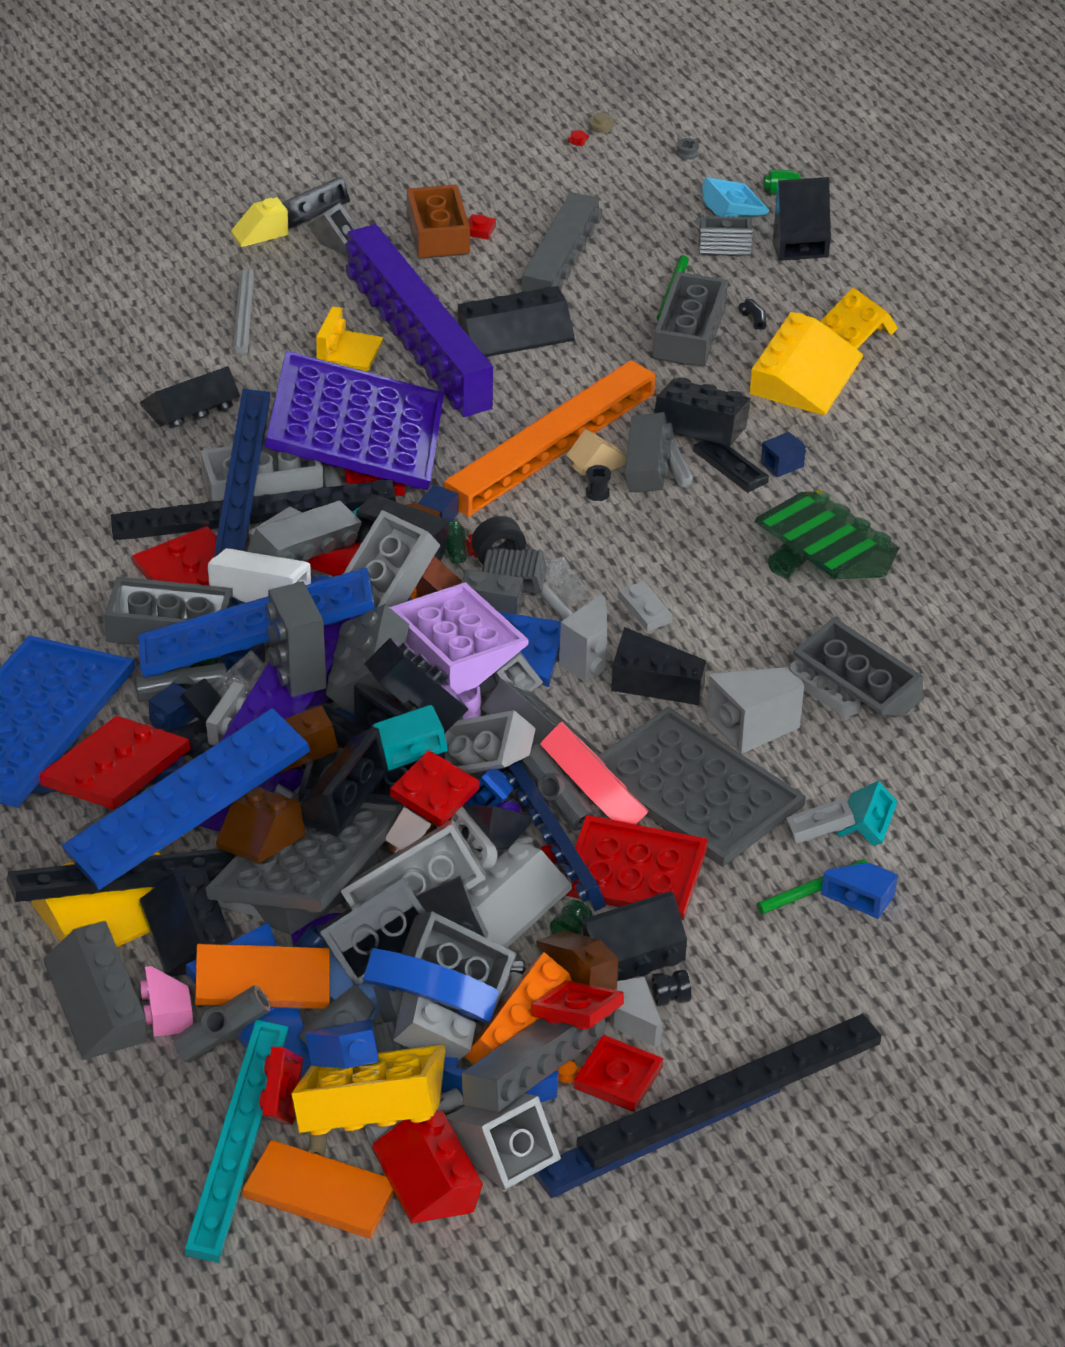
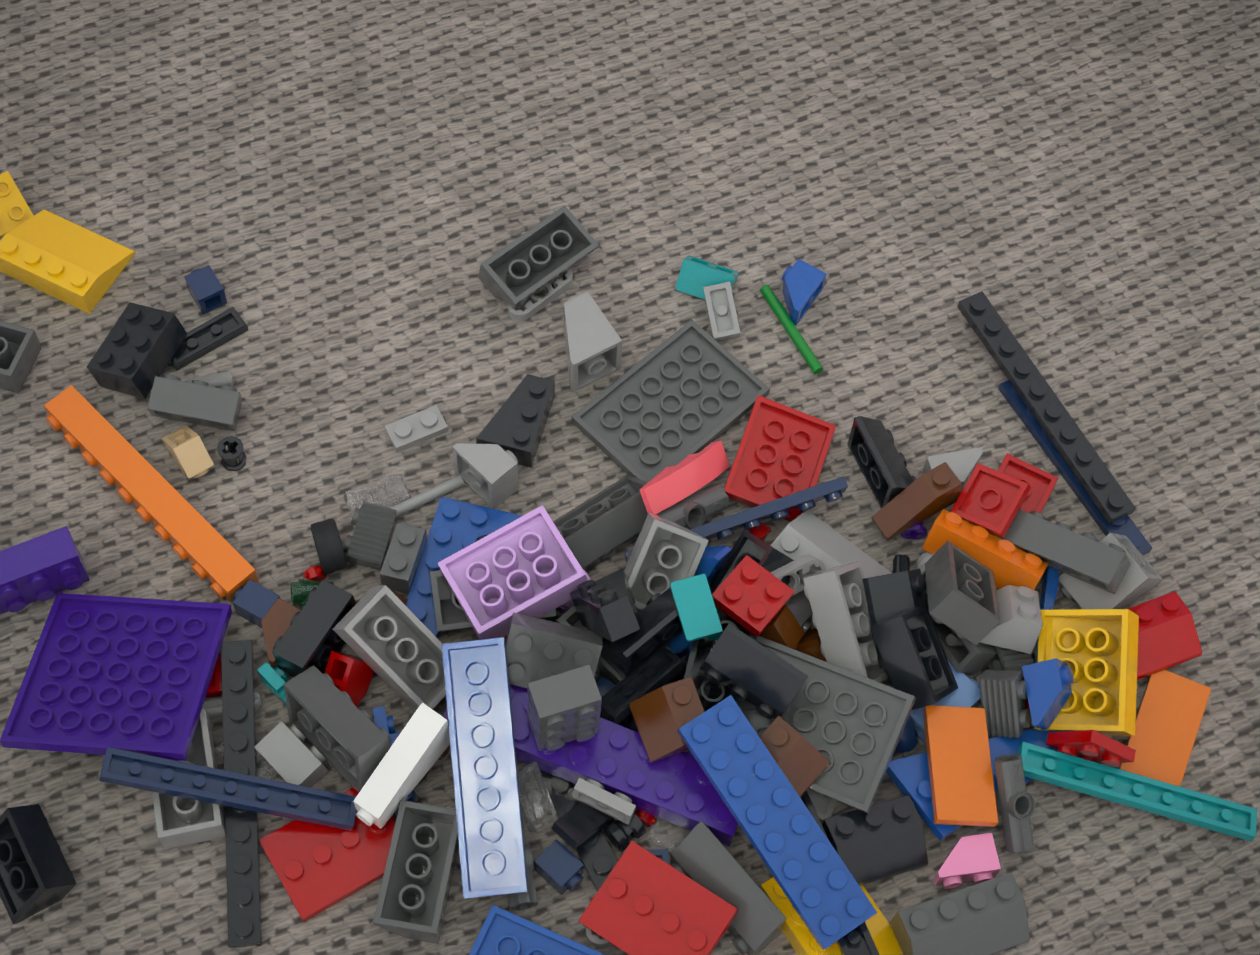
camera: 90 degrees left, 20 degrees up
(431, 982) = (1003, 630): blue slope -> none
(571, 918) = (848, 514): clear green wheel -> none
(668, 987) = (923, 441): black wheel -> none
(785, 561) = (362, 300): clear green wheel -> none
(830, 536) = (351, 260): clear green slope -> none

